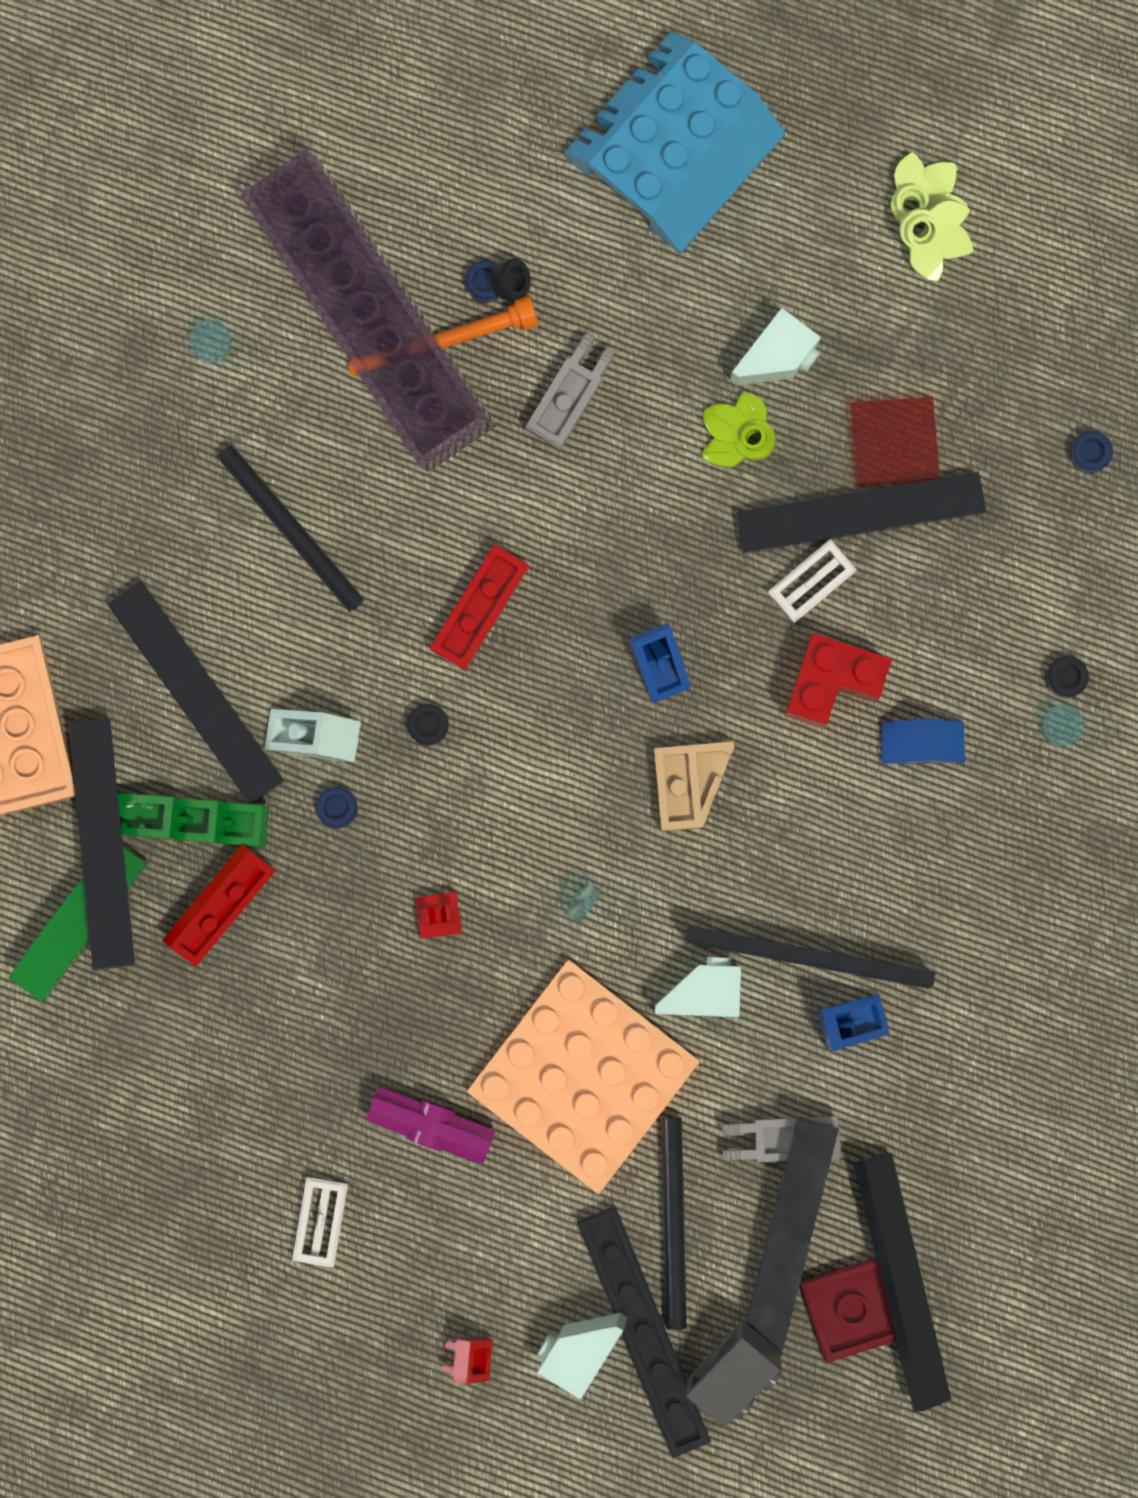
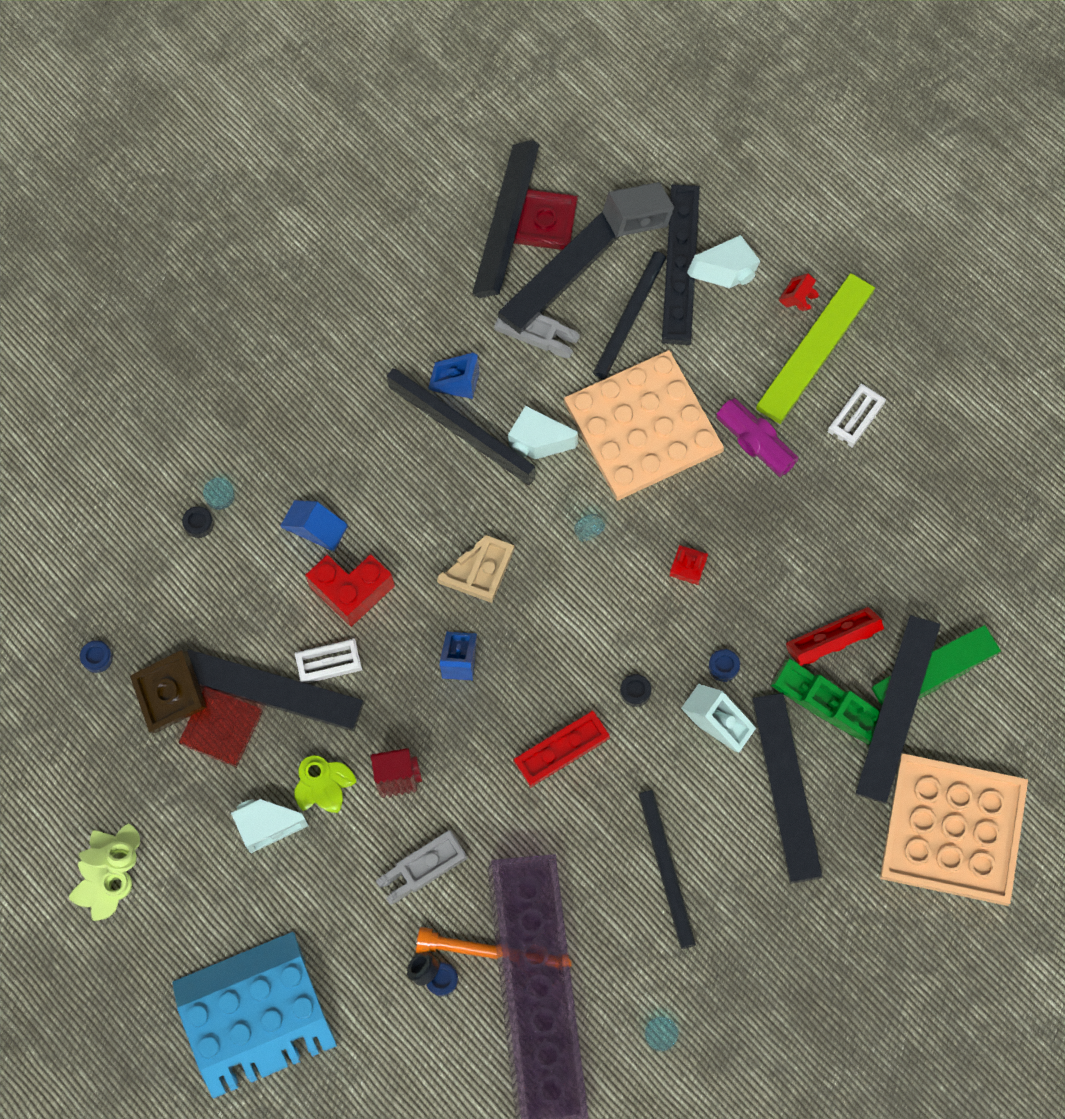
camera: 150 degrees left, 15 degrees down
(413, 1293) = (815, 348): none -> lime tile
(656, 476) = (395, 772): none -> dark red brick
(977, 446) = (168, 691): none -> dark brown plate

